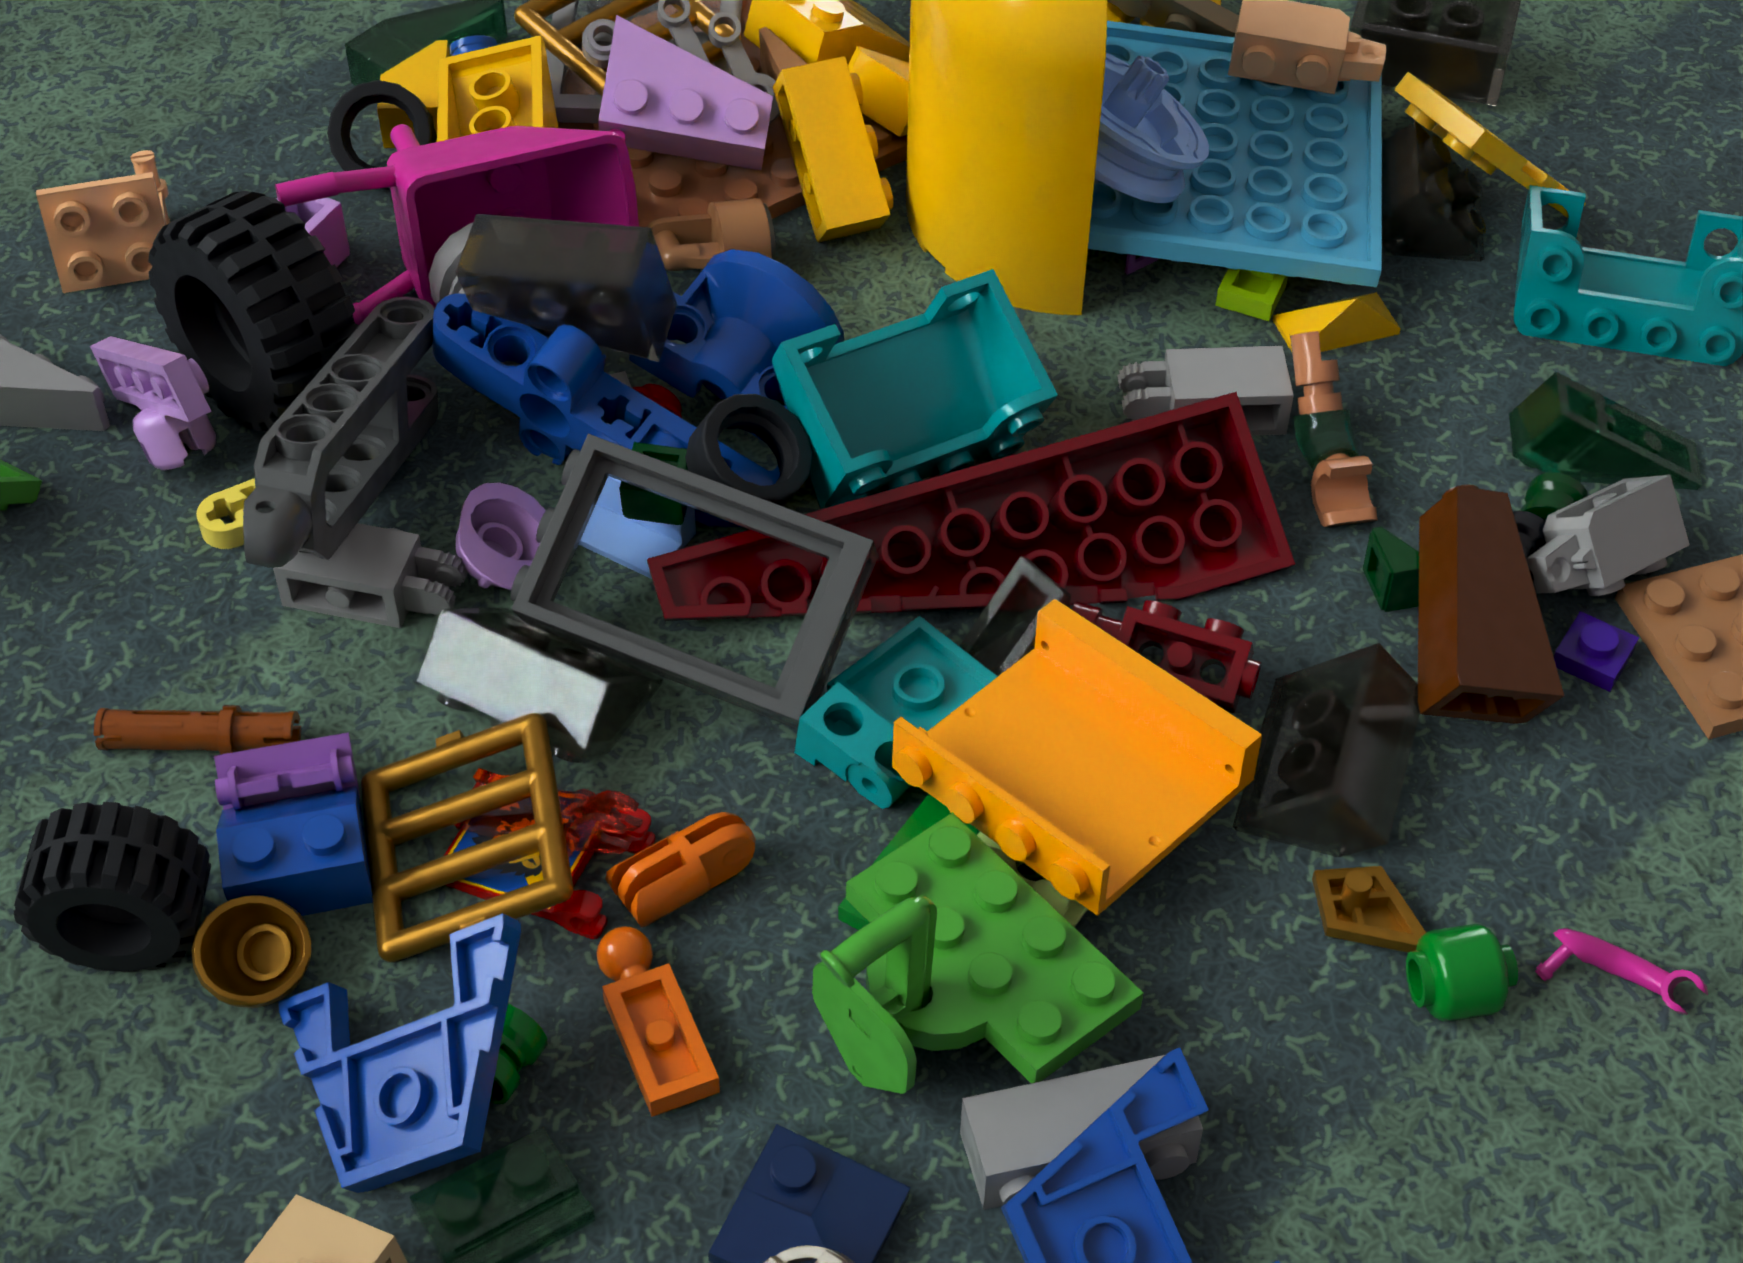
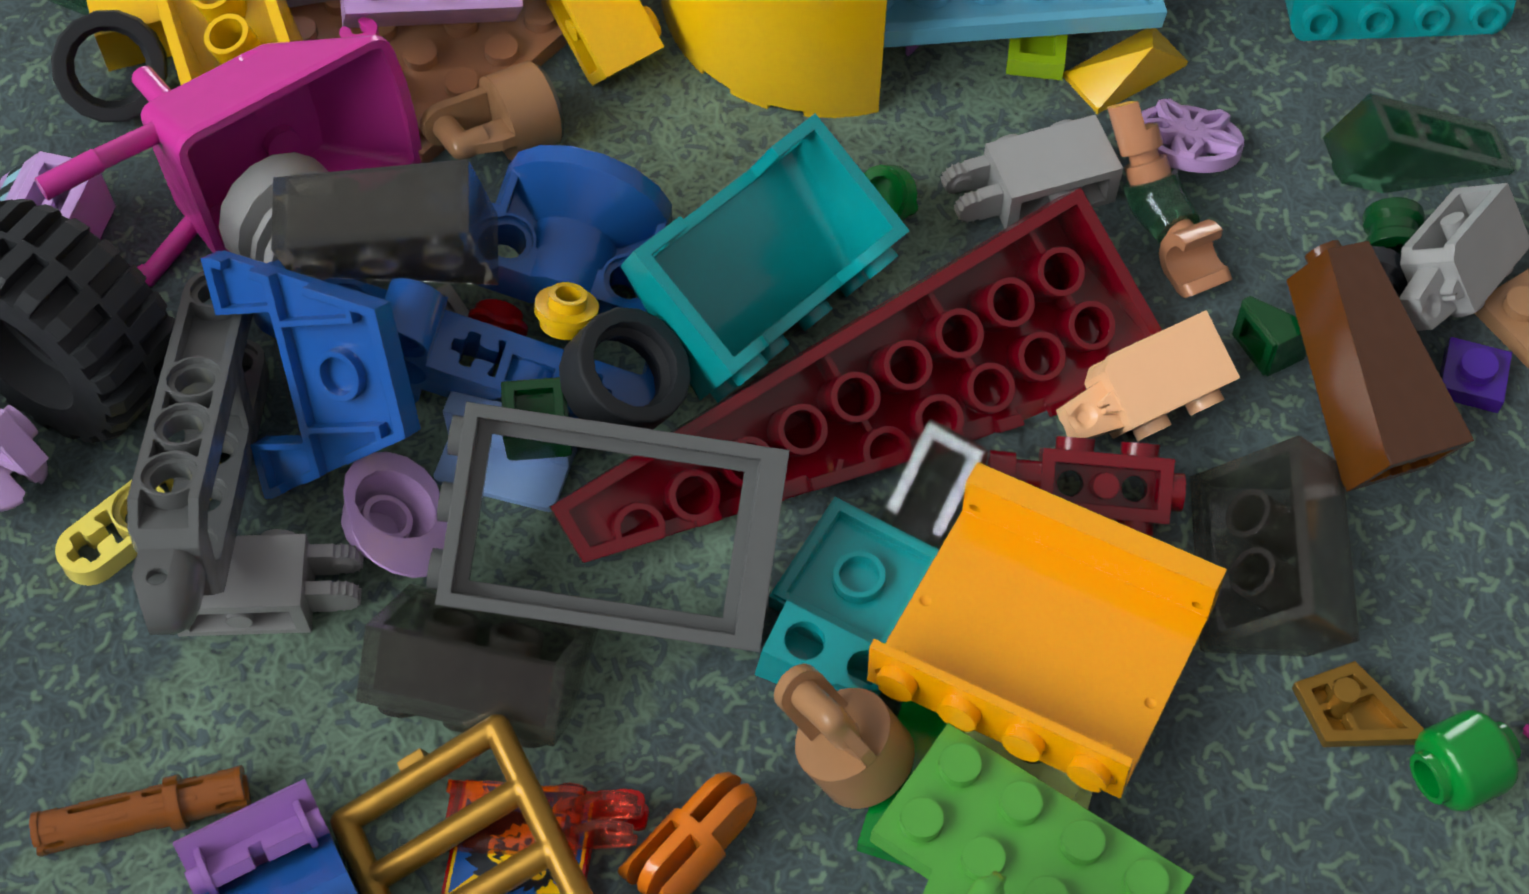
camera: 15 degrees left, 10 degrees up
(487, 392) = (338, 365): none -> blue wing
(708, 389) = (564, 309): none -> yellow plate
(853, 810) = (845, 738): none -> medium nougat piece
(1069, 377) = (896, 188): none -> green tile
(1262, 581) = (1150, 379): none -> light nougat hinge
(1380, 390) = (1193, 133): none -> lavender wheel

